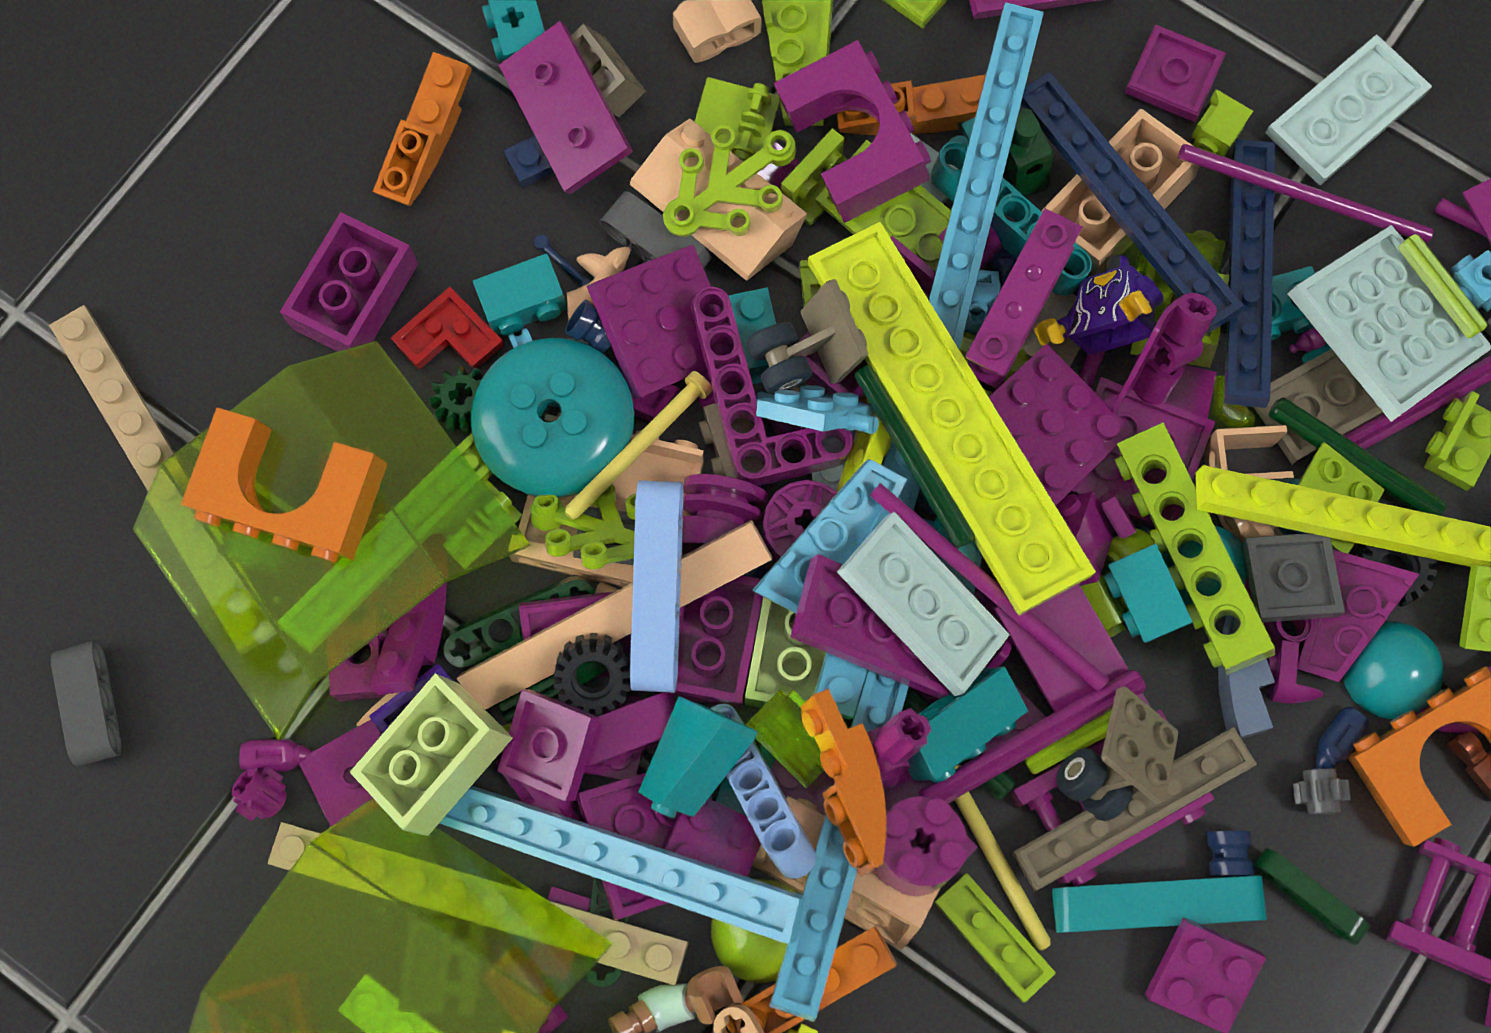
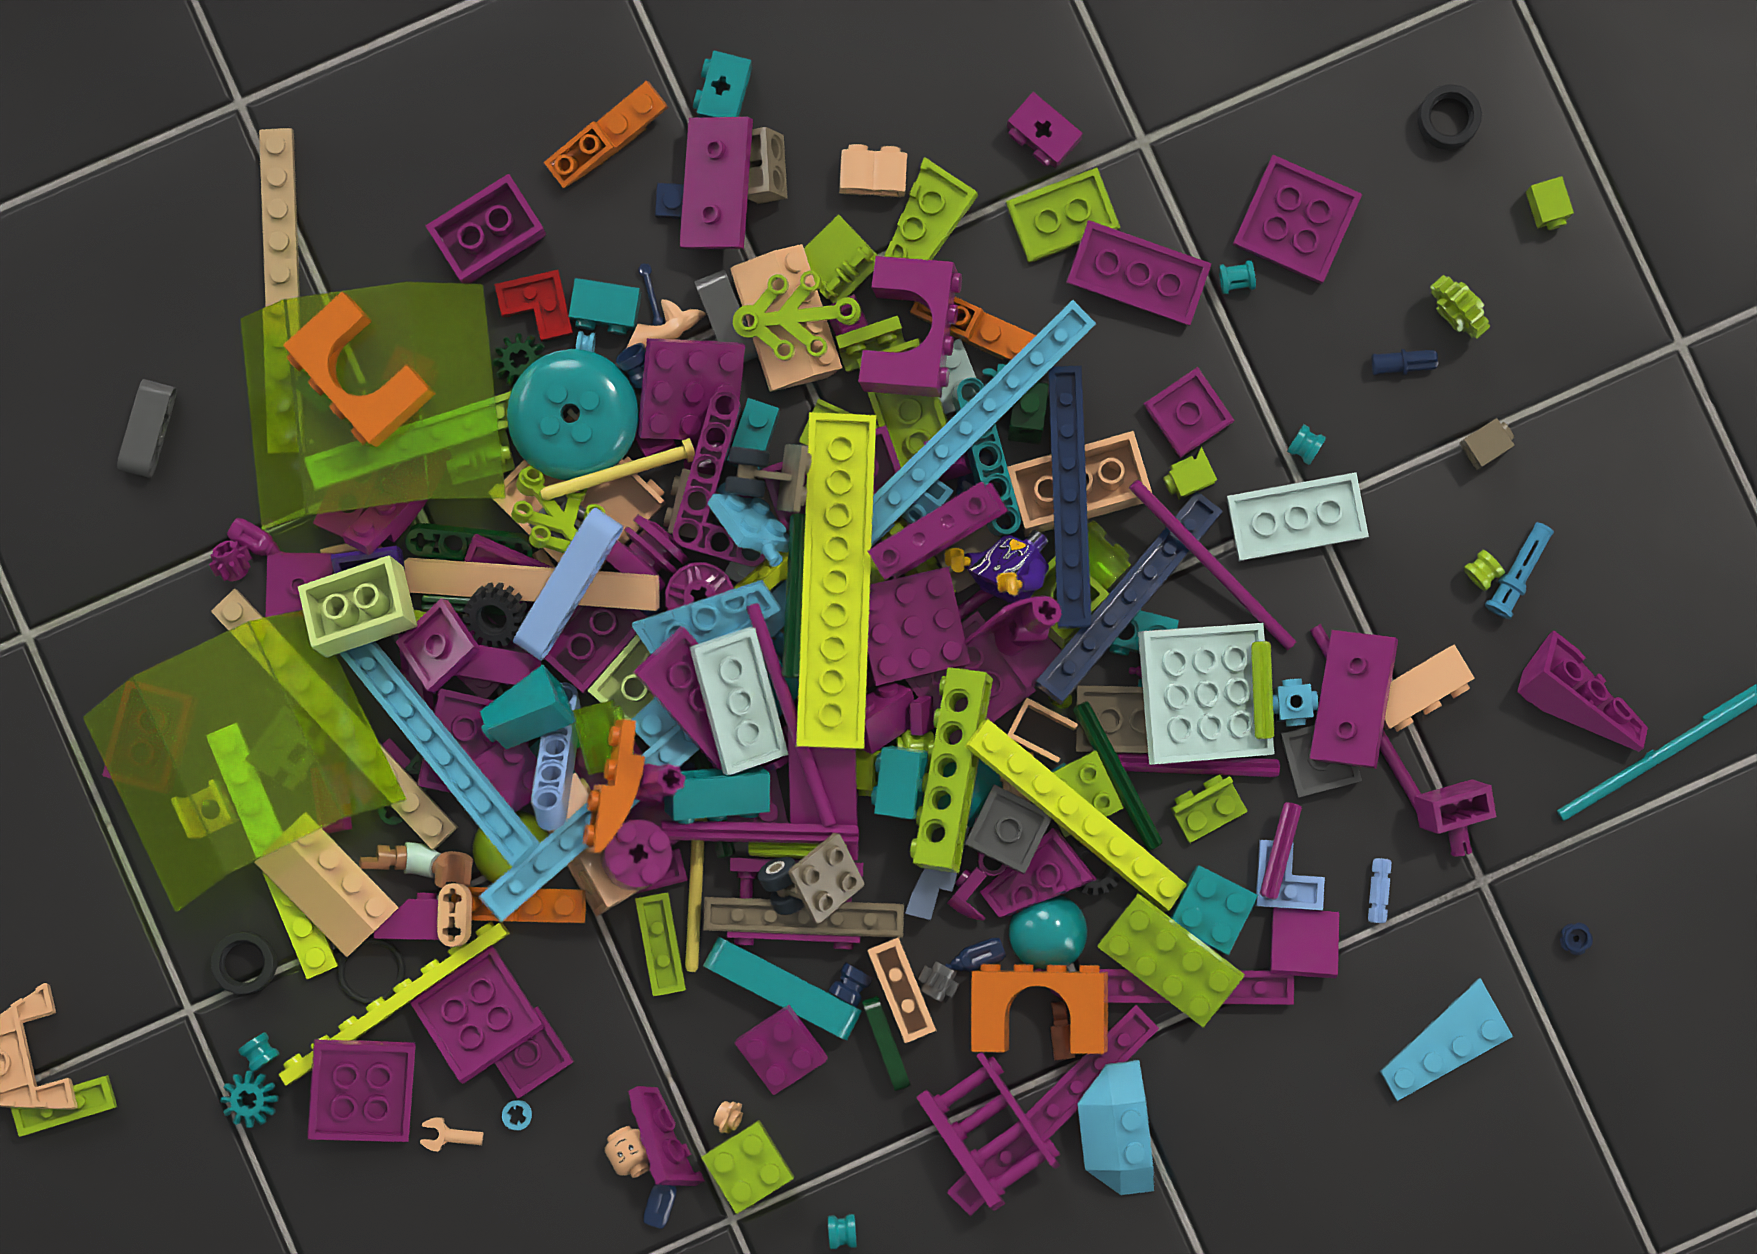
camera: 30 degrees right, 10 degrees up
(1292, 825) = (901, 990): none -> light nougat brick
(1309, 37) = (1306, 444): none -> teal wheel

